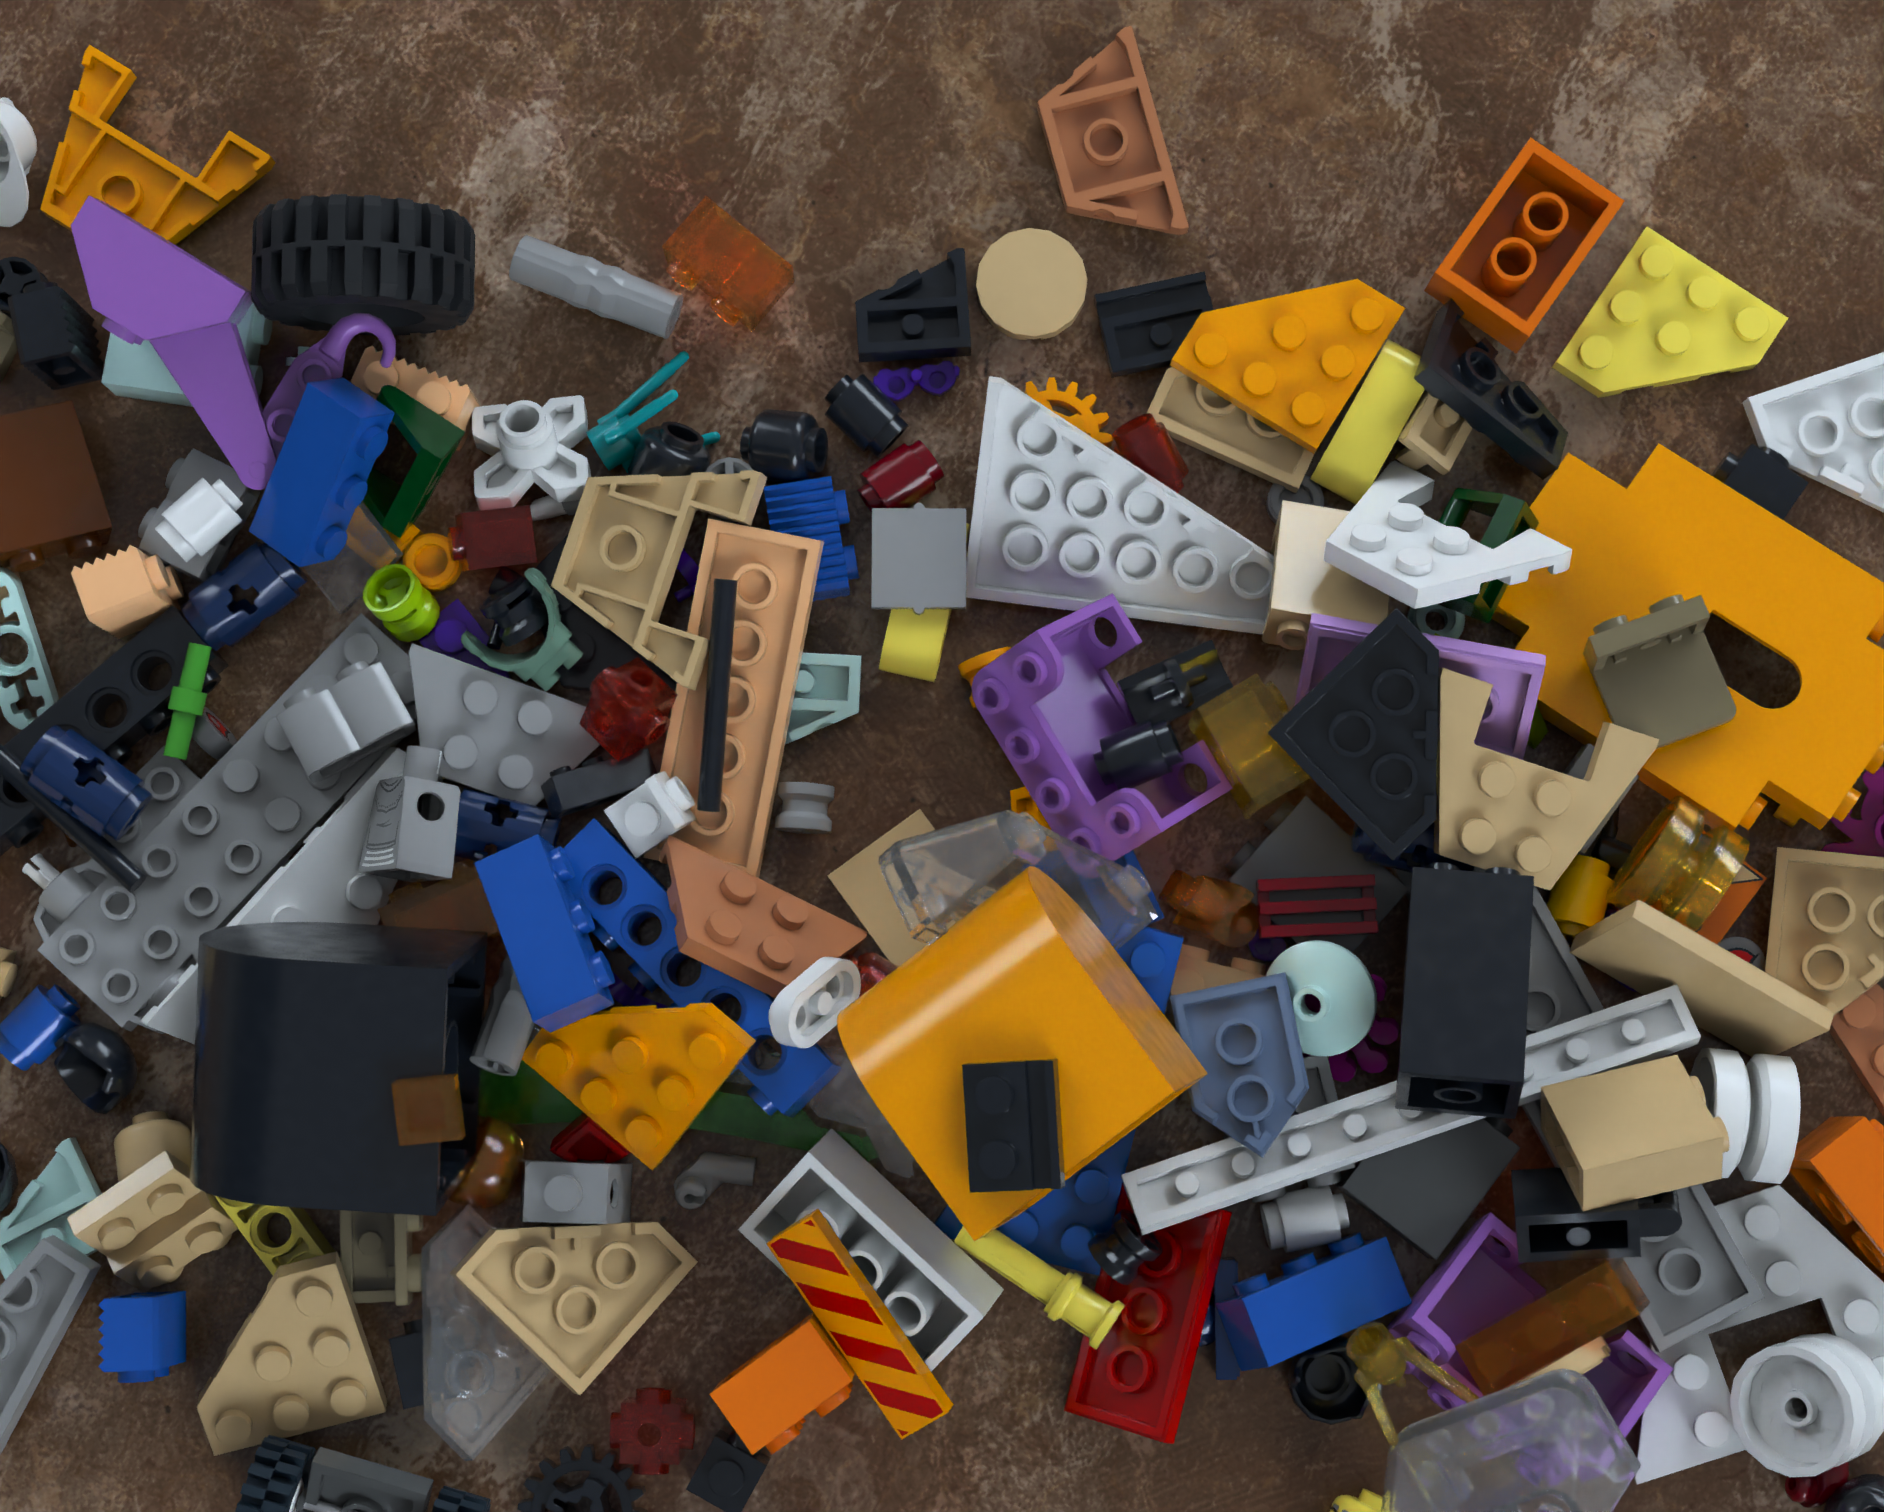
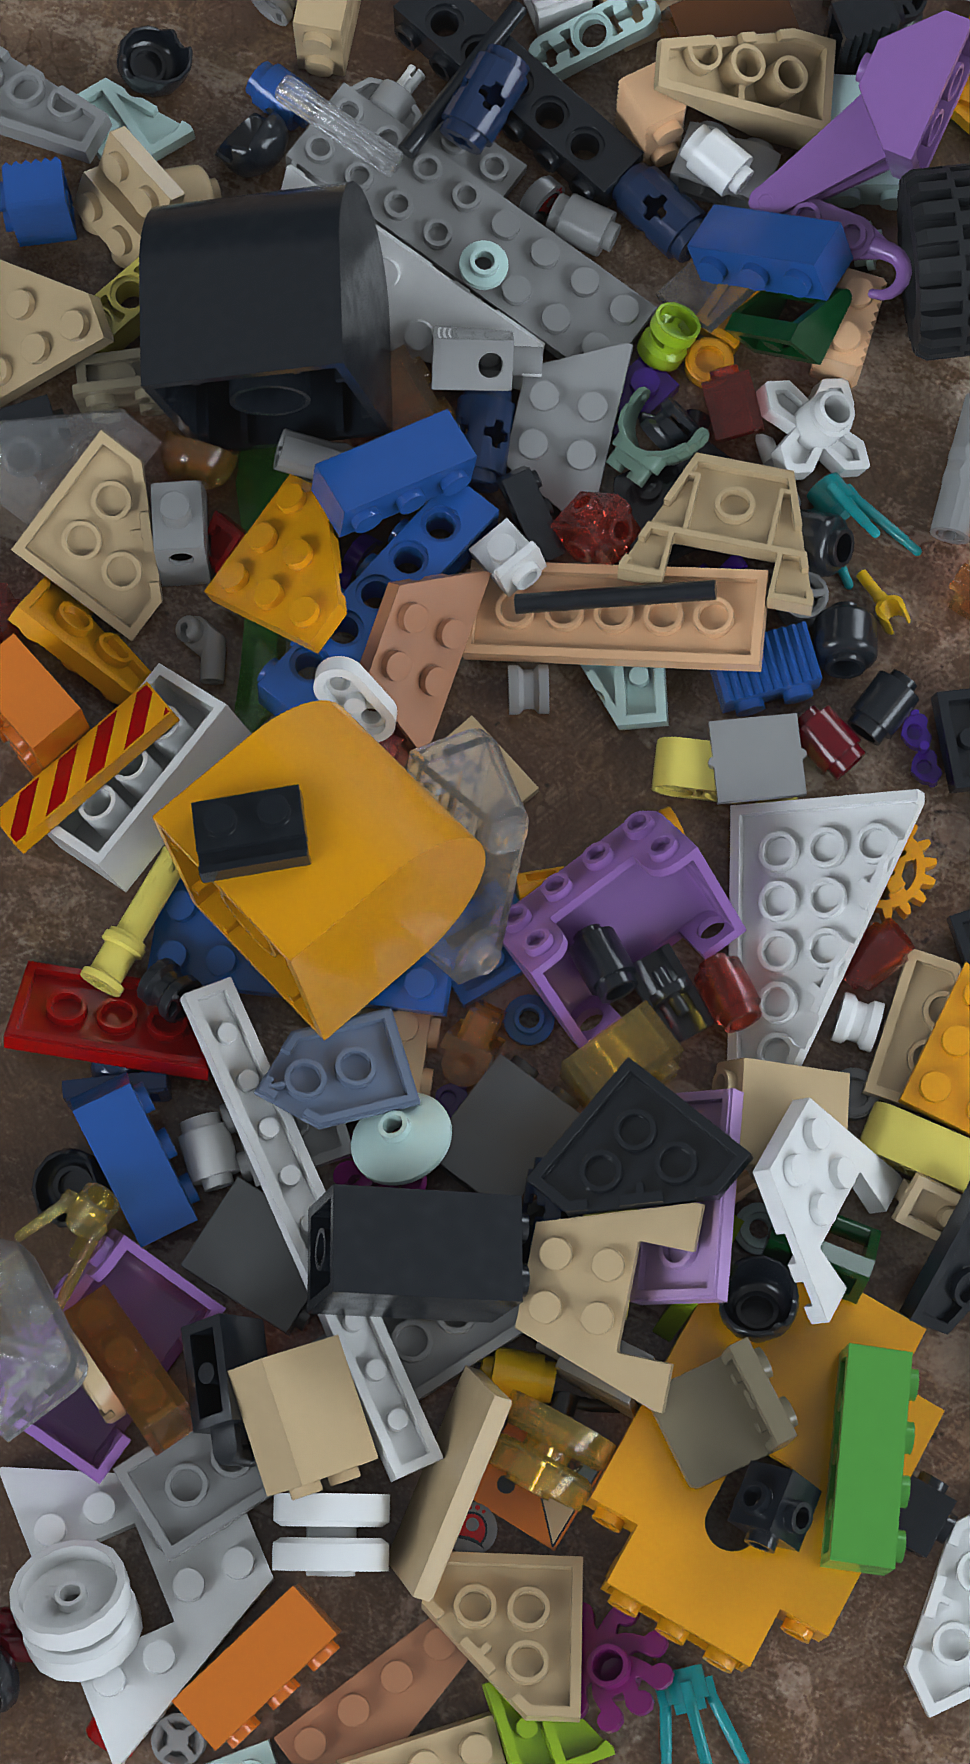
camera: 85 degrees right, 5 degrees down
(97, 959) = (339, 125): none -> clear axle
(106, 464) = (757, 83): none -> tan wedge
(187, 701) = (563, 172): bright green bar -> none
(247, 686) = (583, 224): none -> light grey brick
(302, 820) = (478, 277): none -> light aqua plate
(345, 721) = (559, 297): light grey brick -> none
(428, 1109) = (225, 364): clear orange tile -> none
(698, 1321) = (71, 635): none -> light orange wing
(745, 398) = (886, 605): none -> yellow hand
(1172, 860) = (524, 1035): none -> blue plate
(1181, 621) = (728, 992): none -> clear red brick
(1220, 486) = (857, 1022): none -> white wheel
(1366, 904) = (477, 1086): dark red tile -> none
(1536, 619) = (760, 1299): none -> black hair
(1718, 526) = (868, 1460): none -> bright green brick
(1768, 631) = (774, 1507): none -> black brick

